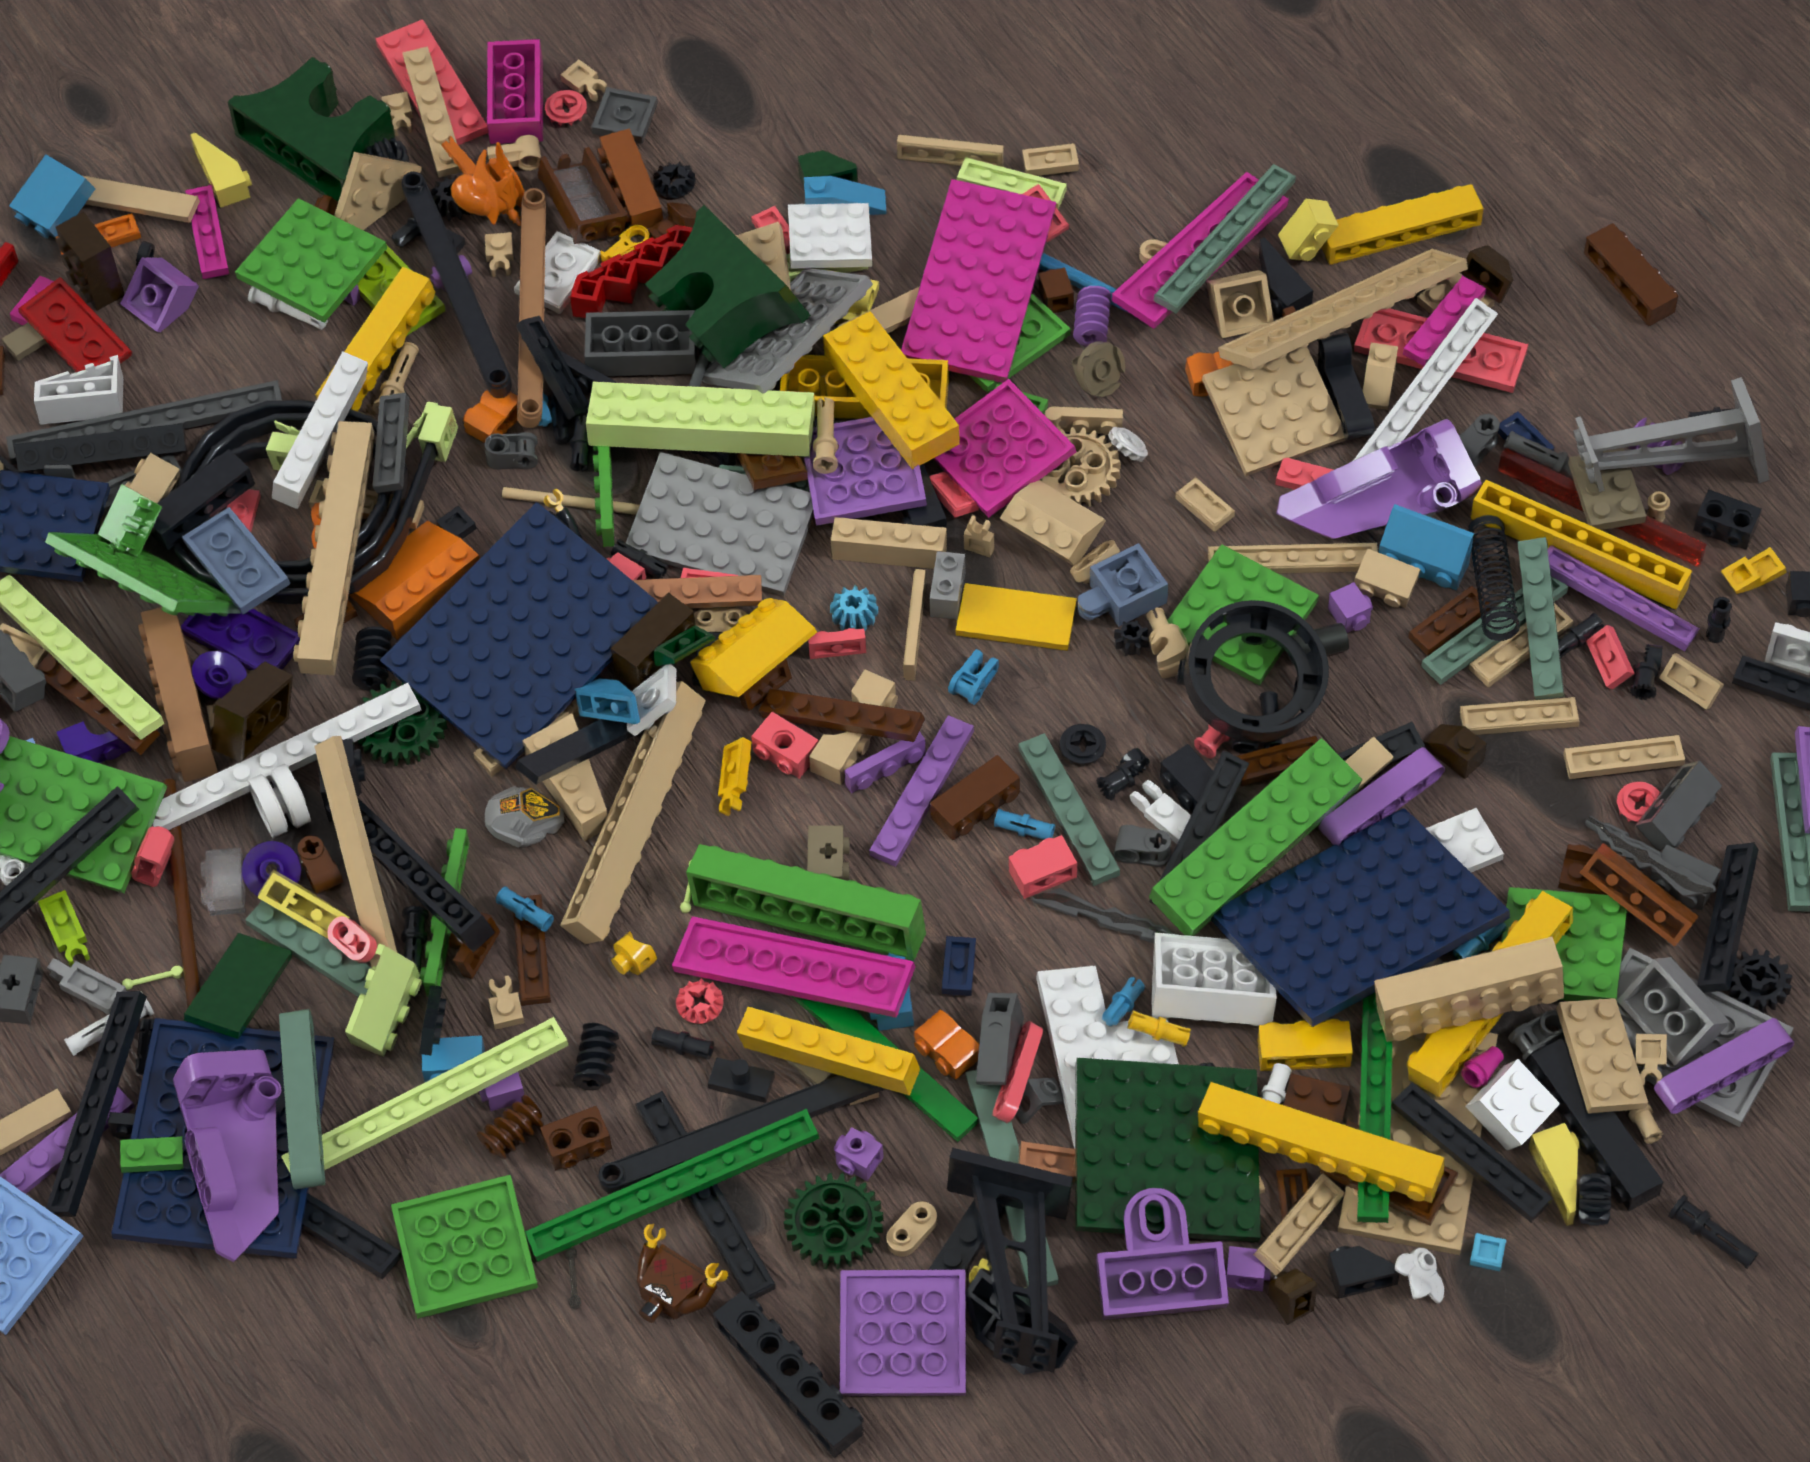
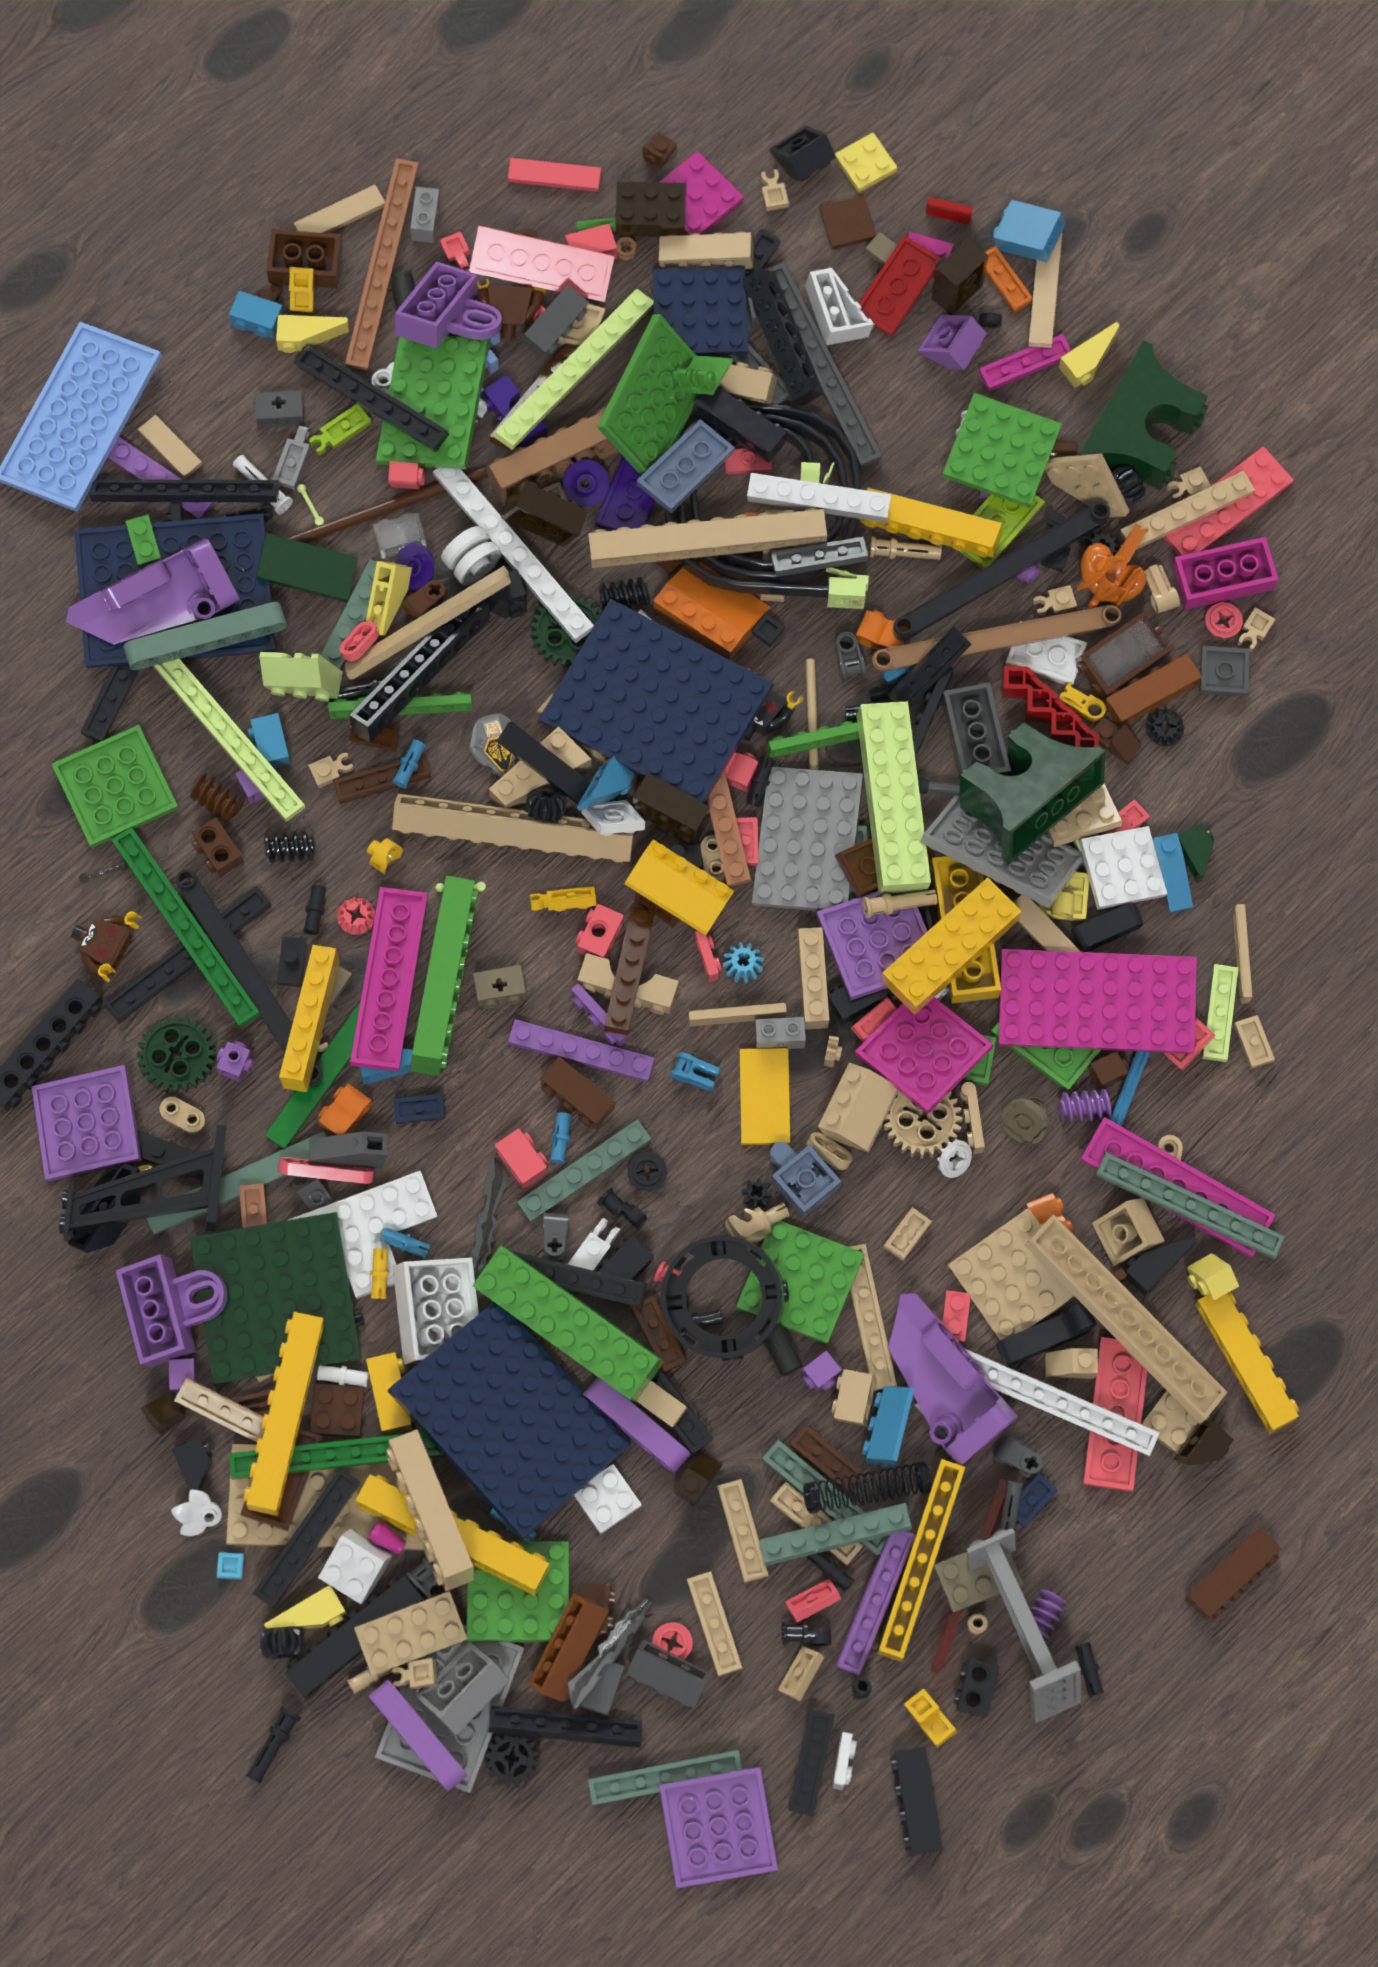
camera: 75 degrees right, 15 degrees up
(433, 1020) = (291, 715): black plate -> none
(618, 765) = (546, 804): none -> black gear
(682, 646) = (661, 829): dark green slope -> none
(892, 264) = (1107, 927): none -> black beam
(1442, 320) = (1141, 1411): dark pink plate -> none

